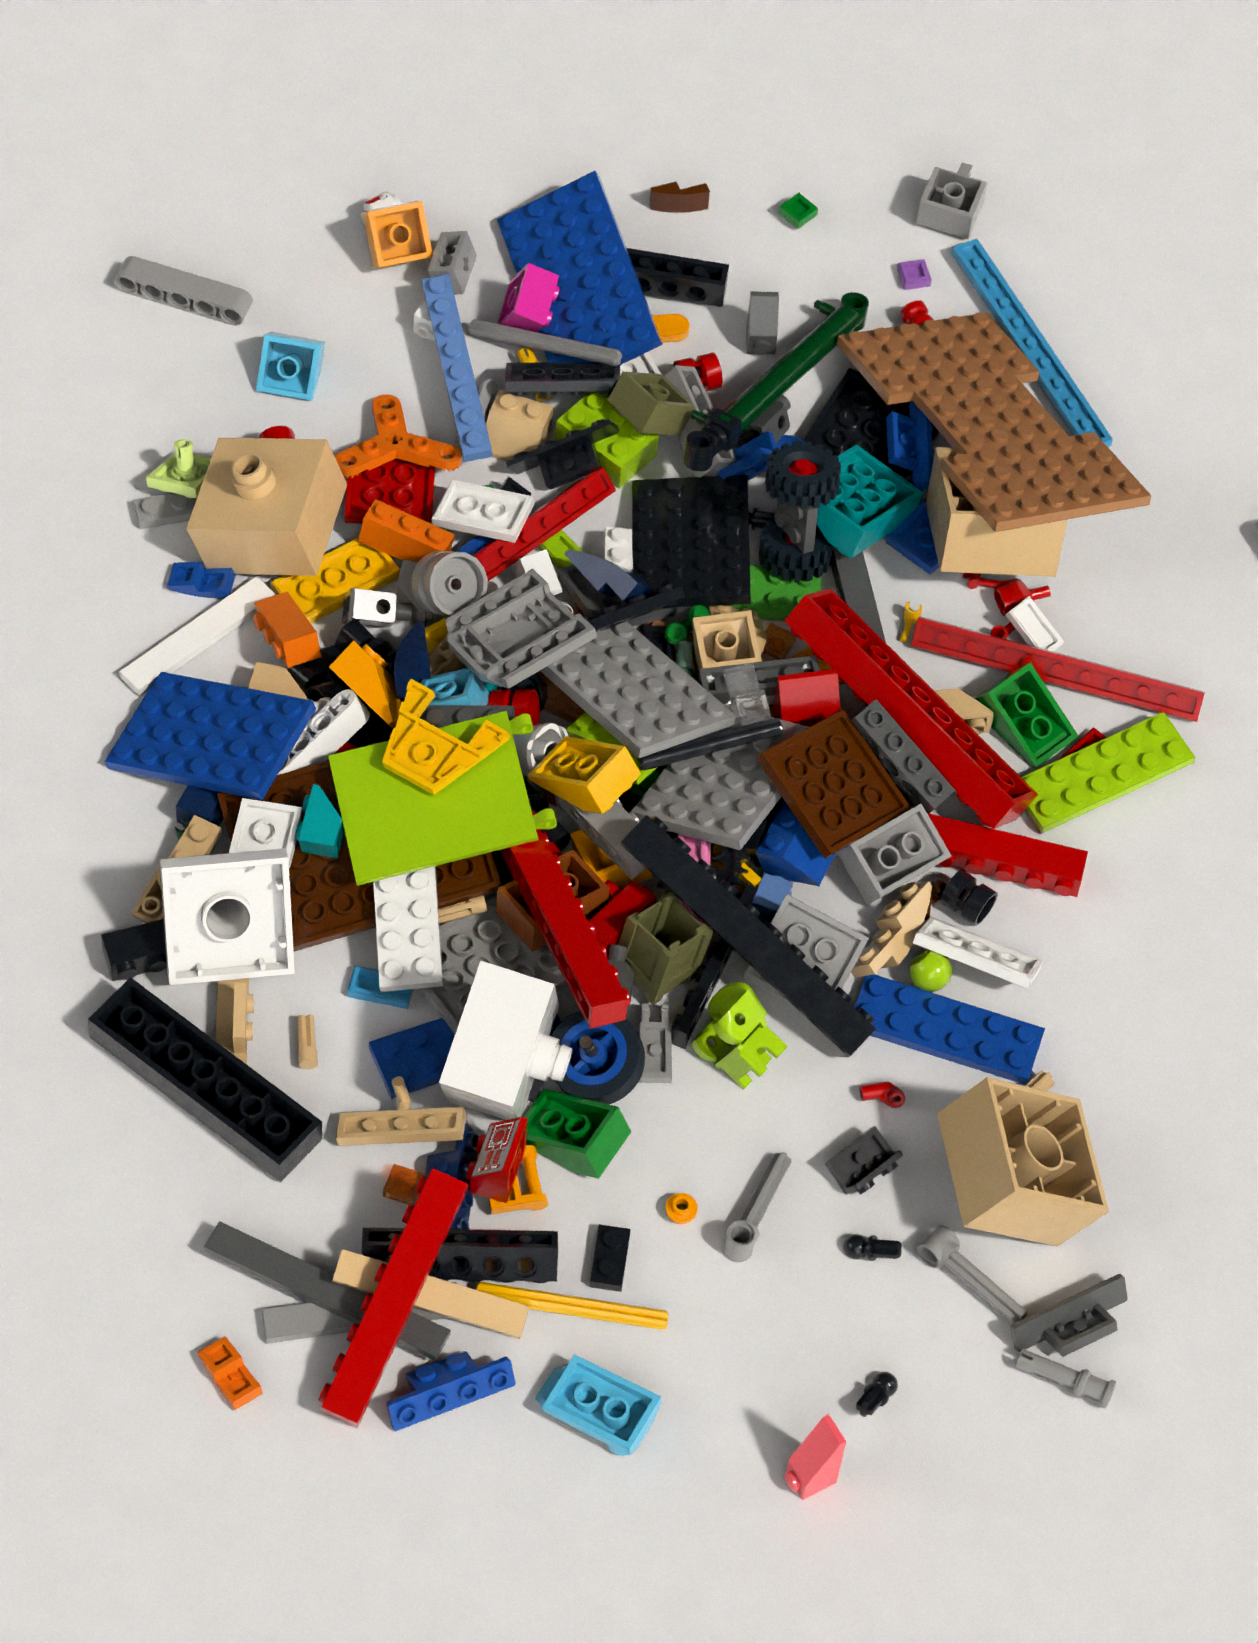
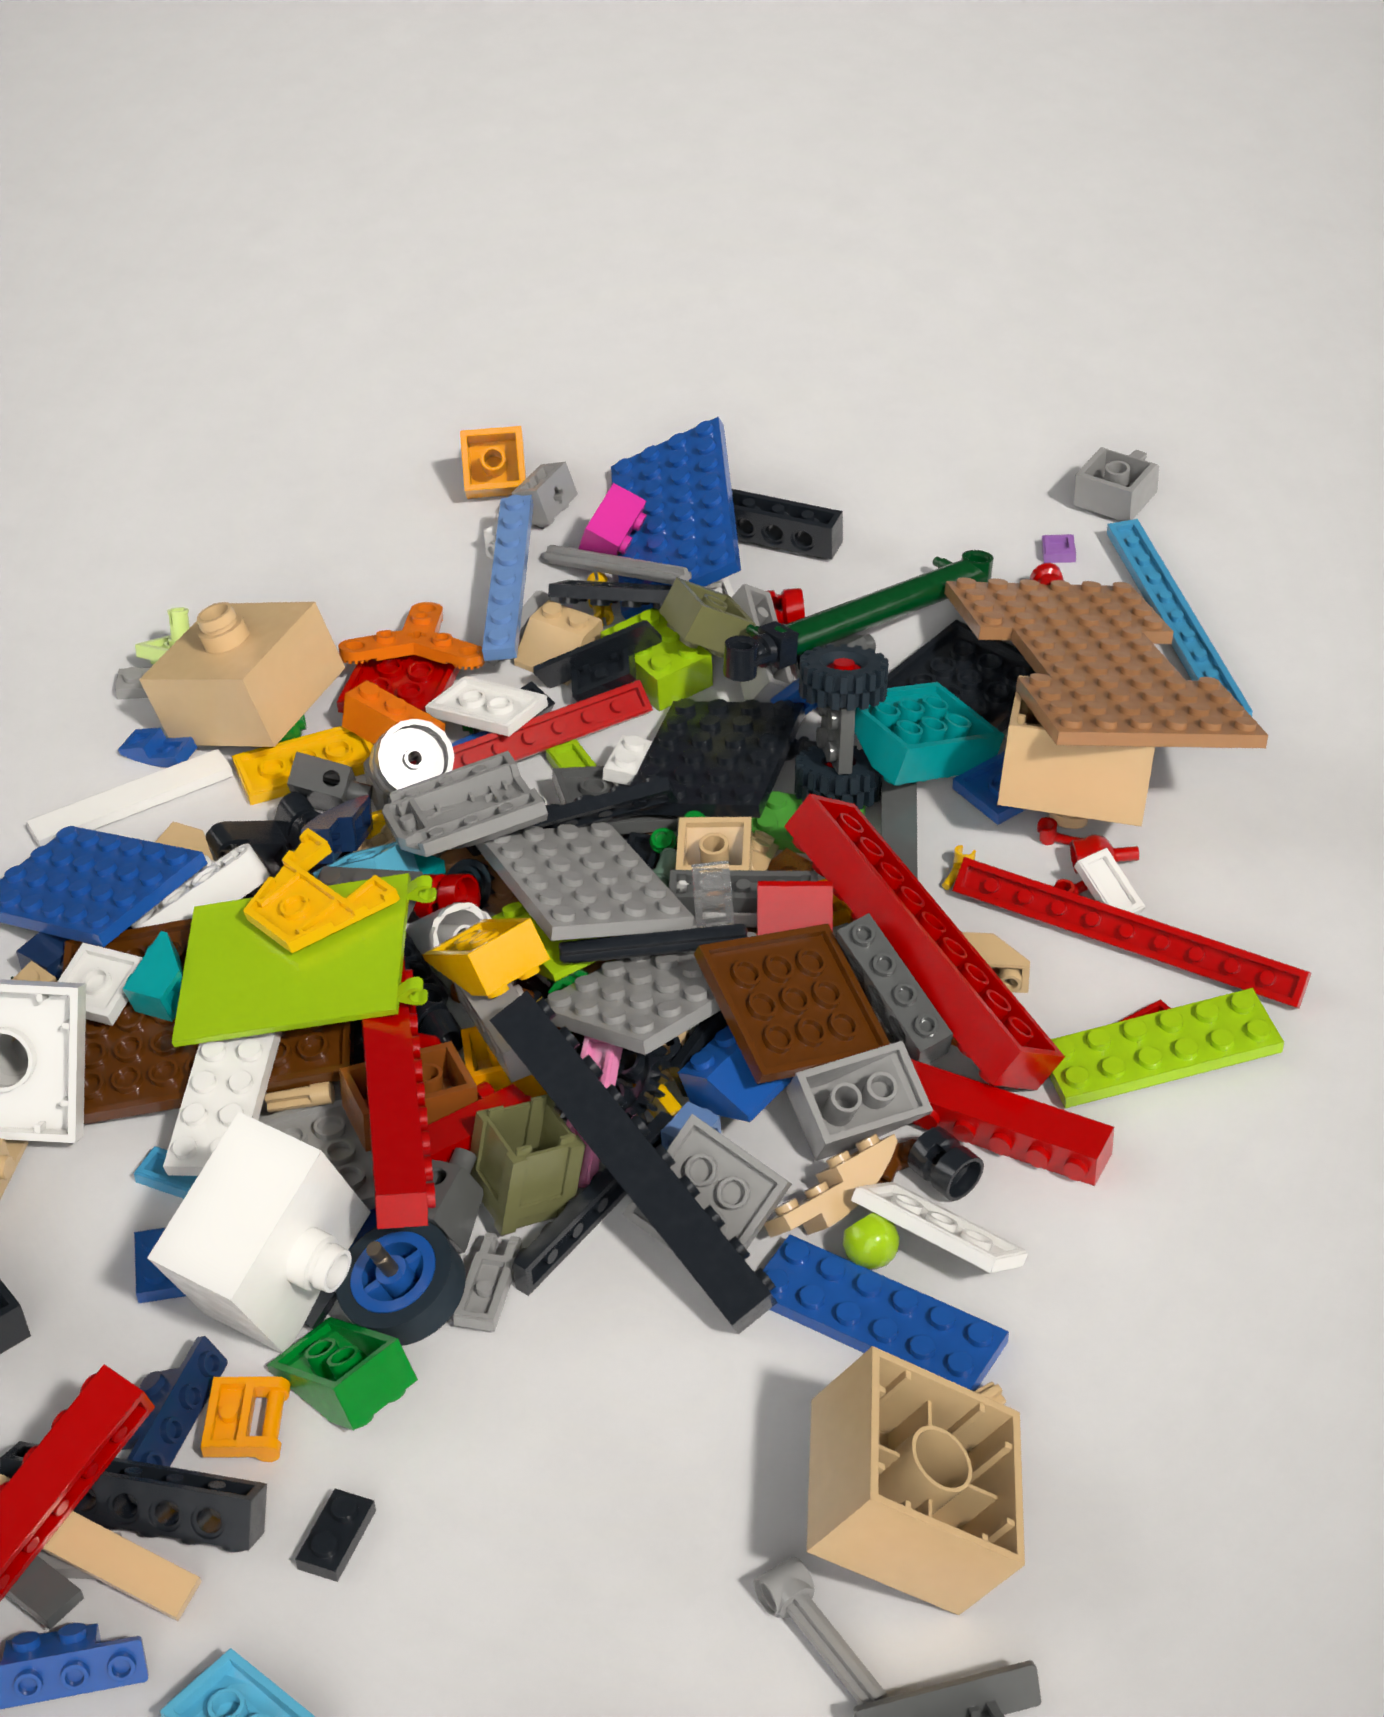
camera: 20 degrees right, 15 degrees down
(183, 290) = (256, 498): light grey beam -> none
(286, 629) = (218, 795): orange brick -> none
(290, 365) = (338, 566): medium azure slope -> none
(307, 1045) = (60, 1223): tan piece -> none
(366, 675) = (270, 830): light orange slope -> none
(401, 1125) = (127, 1328): tan plate -> none
(498, 1159) = (225, 1384): red slope -> none
(542, 565) = (532, 767): white slope -> none
(579, 1306) = (272, 1590): yellow axle -> none
(608, 577) = (594, 769): dark blue slope -> none
(672, 327) = (761, 572): light orange tile -> none
(676, 200) = (807, 463): reddish brown slope -> none
(681, 1216) = (451, 1495): light orange plate -> none
(740, 1022) = (591, 1271): lime piece -> none
(746, 1227) = (518, 1528): light grey axle -> none
(762, 323) = (866, 563): slope -> none
(798, 210) = (942, 483): green plate -> none
(857, 1247) = (692, 1575): black axle -> none
(863, 1161) = (712, 1459): black bracket -> none
(885, 1092) = (770, 1380): red arm -> none
(911, 444) = (997, 687): blue bracket -> none
(1027, 715) = (1076, 974): green slope -> none

